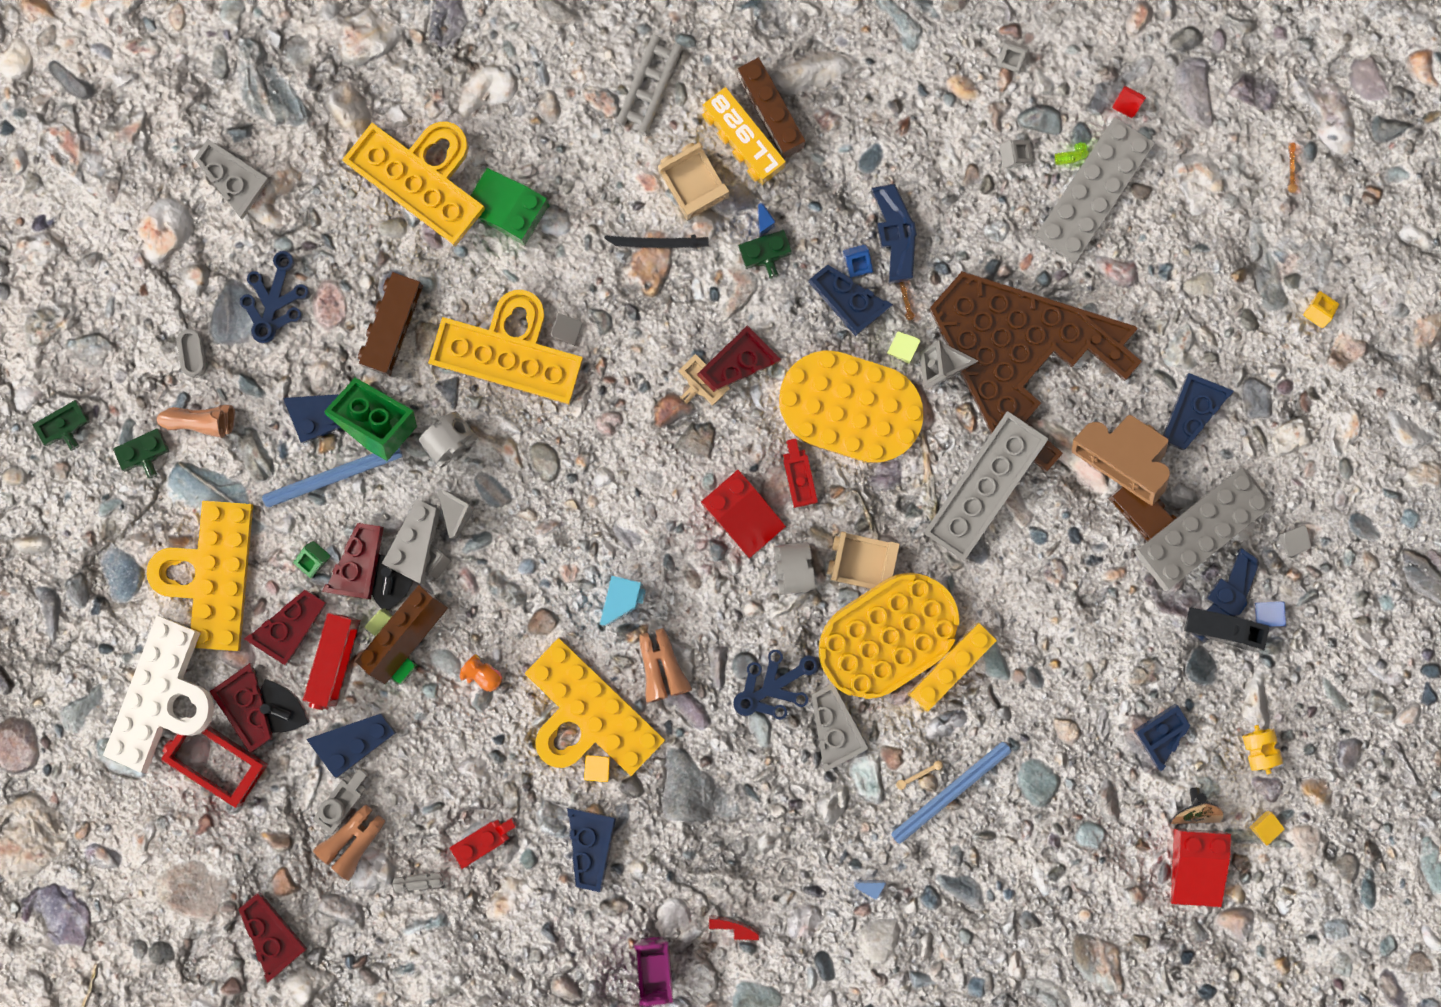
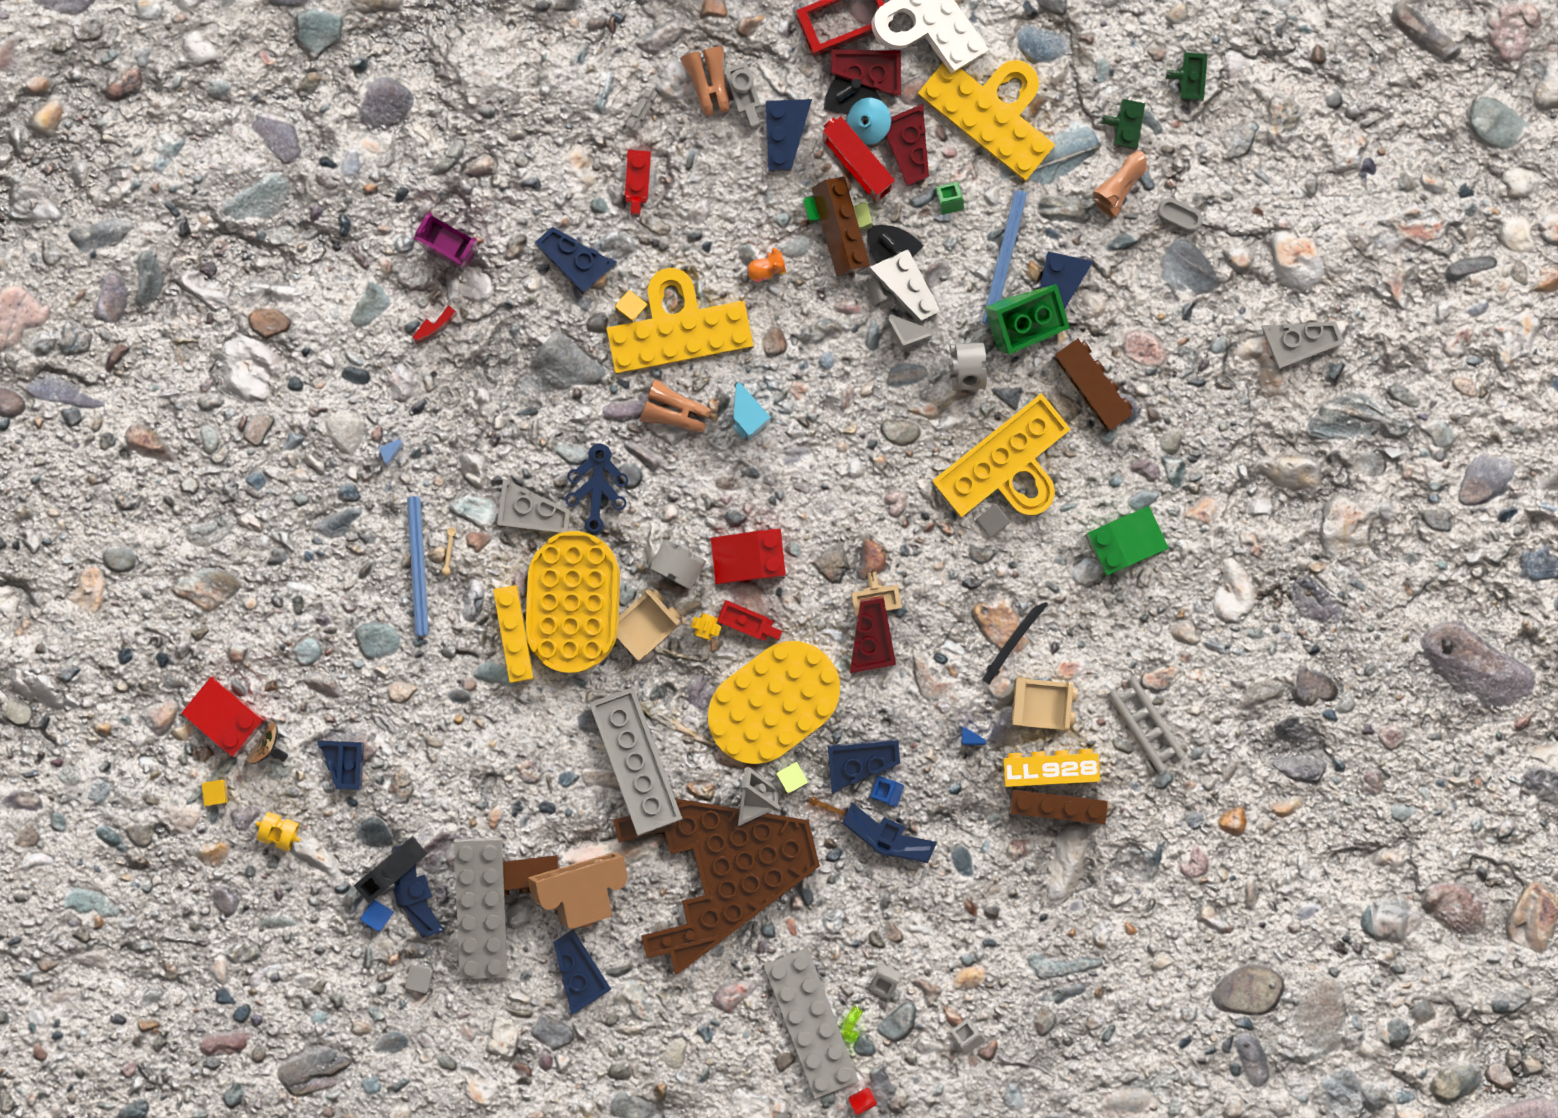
camera: 120 degrees right, 0 degrees up
(273, 301) = (1177, 305): dark blue plant -> none
(282, 667) = (878, 124): none -> medium azure dish
(358, 565) = (918, 228): dark red wing -> none
(414, 183) = (1196, 480): yellow plate -> none
(765, 251) = (945, 722): dark green plate -> none
(828, 507) = (706, 626): none -> yellow gear

